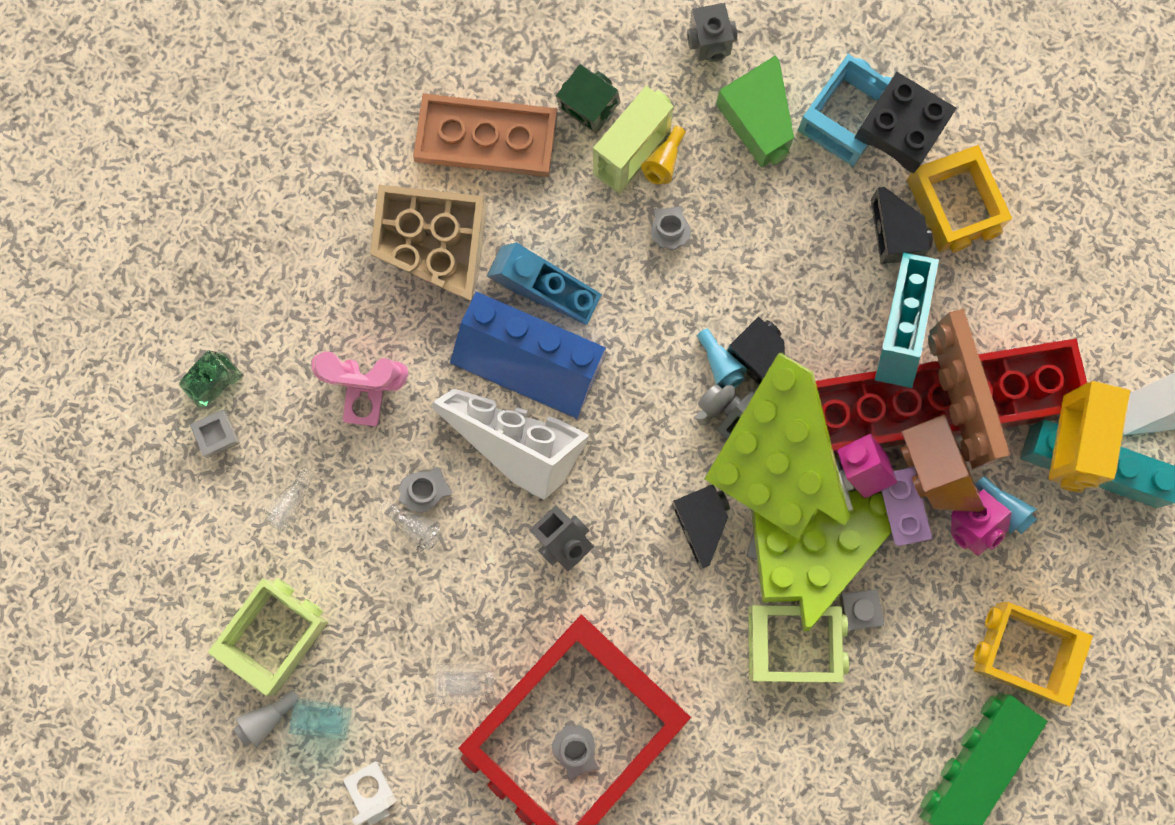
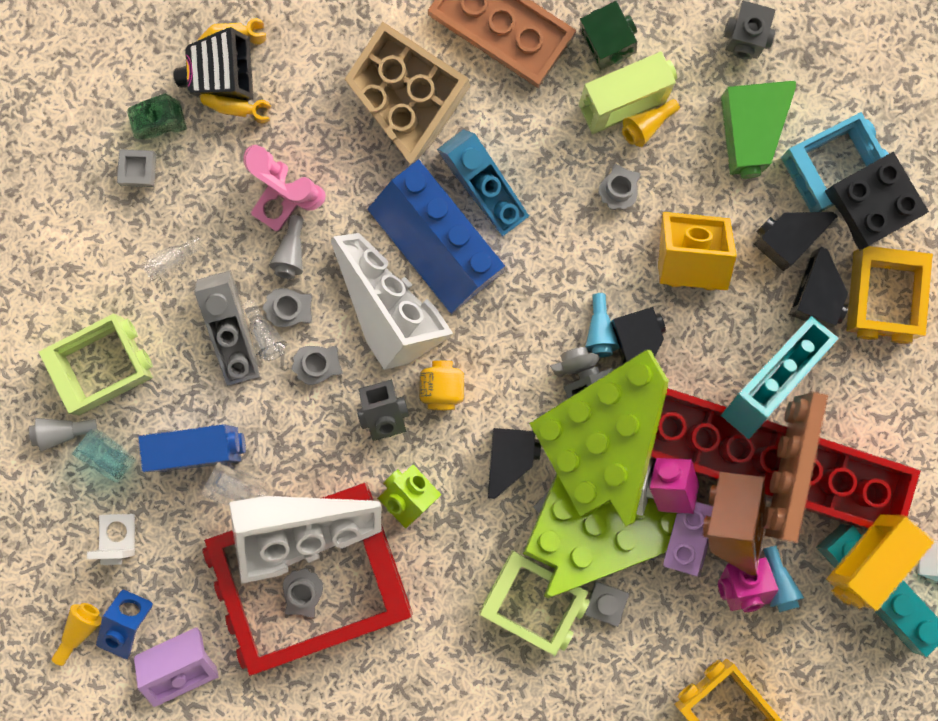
camera: 25 degrees right, 5 degrees up
(249, 303) = (221, 69): none -> torso
(376, 537) = (227, 327): none -> light grey slope
(400, 445) = (288, 257): none -> light grey cone
(400, 667) = (191, 448): none -> blue brick
(477, 528) = (316, 364): none -> light grey animal
(531, 697) = (285, 530): none -> white wedge
(604, 488) = (441, 386): none -> yellow head
(627, 605) = (408, 495): none -> lime brick
(769, 249) = (696, 251): none -> yellow slope
(845, 192) = (791, 235): none -> black slope

